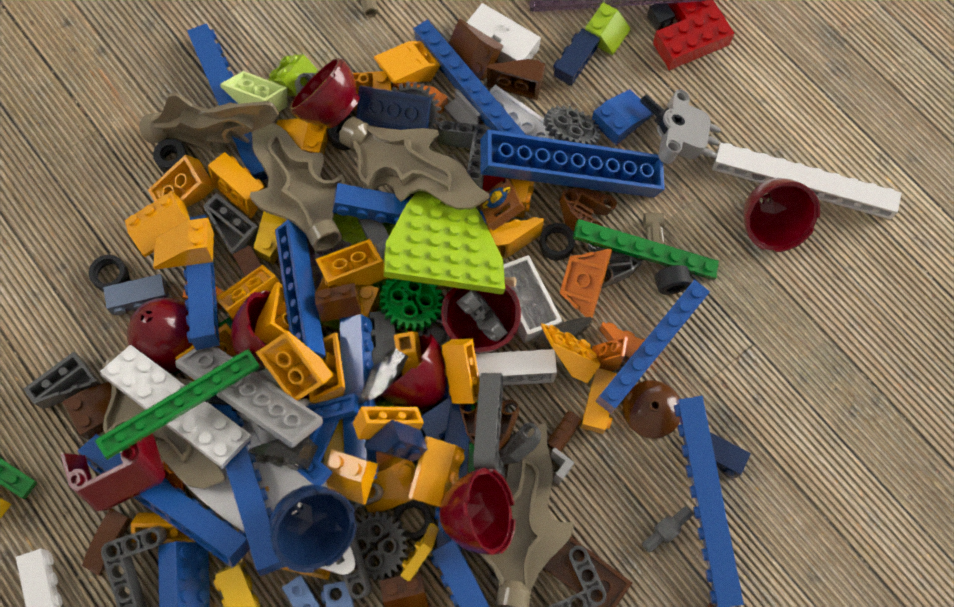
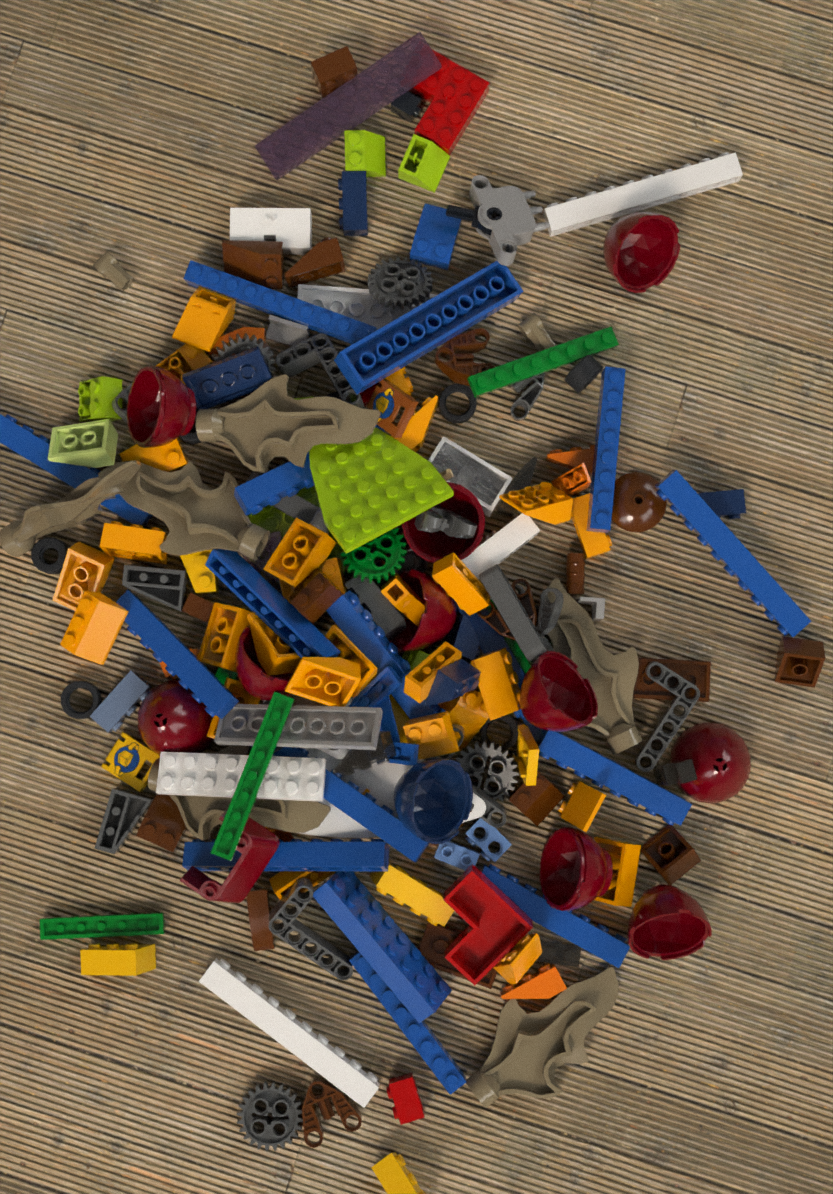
camera: 30 degrees left, 15 degrees up
(104, 342) = (127, 760): none -> yellow container
(185, 245) = (137, 634): light orange slope -> none
(383, 375) = (399, 635): clear smoke slope -> none
(585, 279) = (506, 425): orange wing -> none
(646, 59) = (423, 164): none -> lime slope
(667, 529) = (712, 598): dark grey axle -> none

